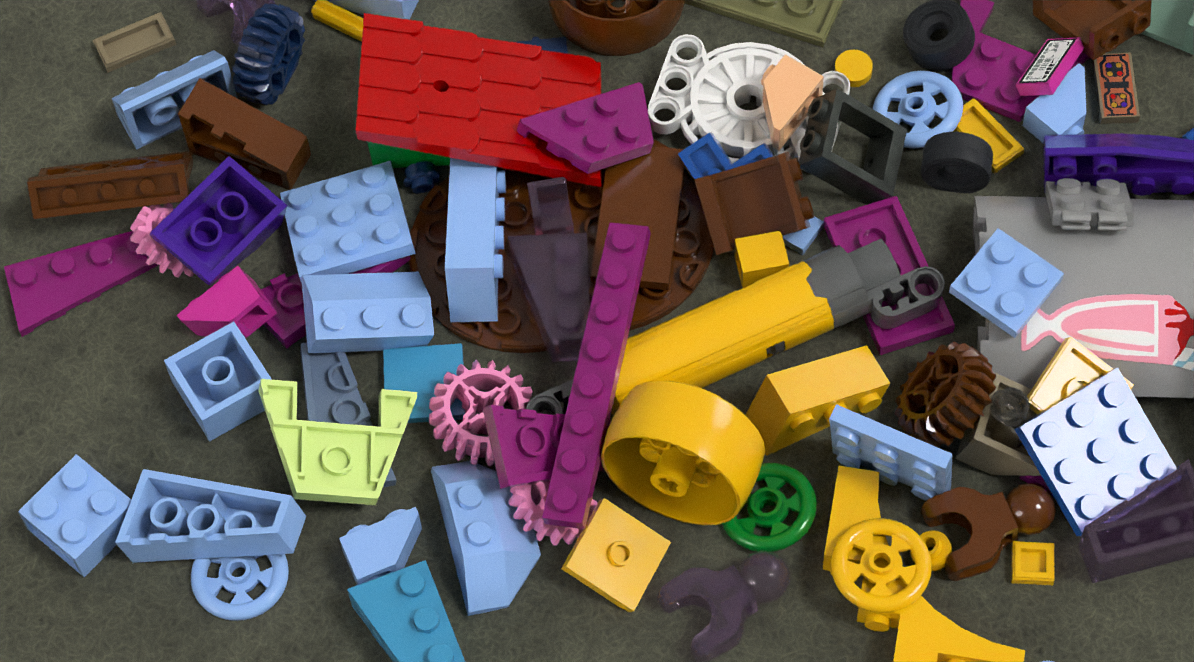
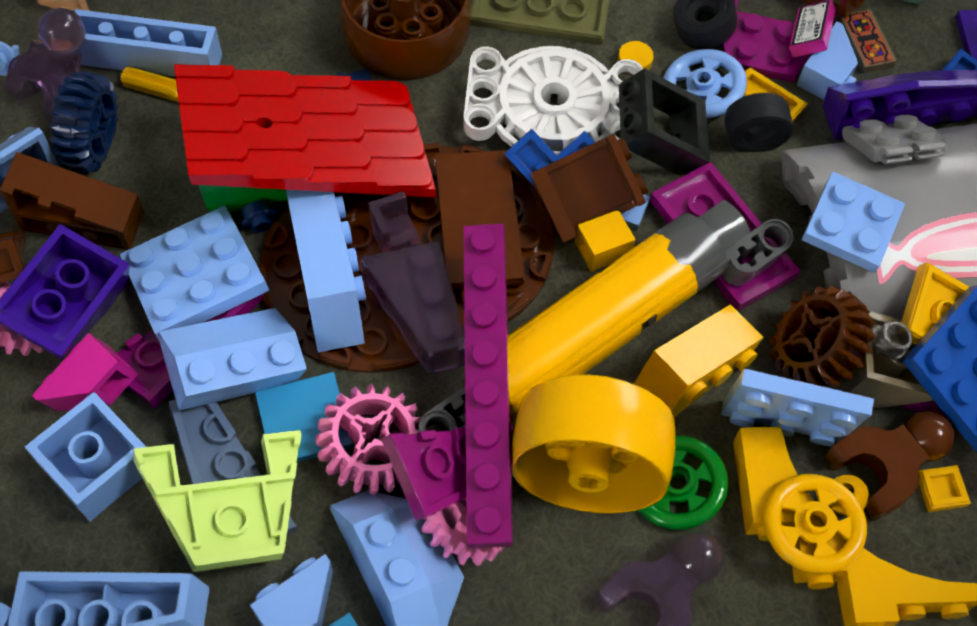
camera: 20 degrees left, 0 degrees up
(596, 129) = (421, 143): magenta wing -> none
(616, 555) = (543, 565): yellow plate -> none
(787, 97) = (594, 86): light nougat slope -> none

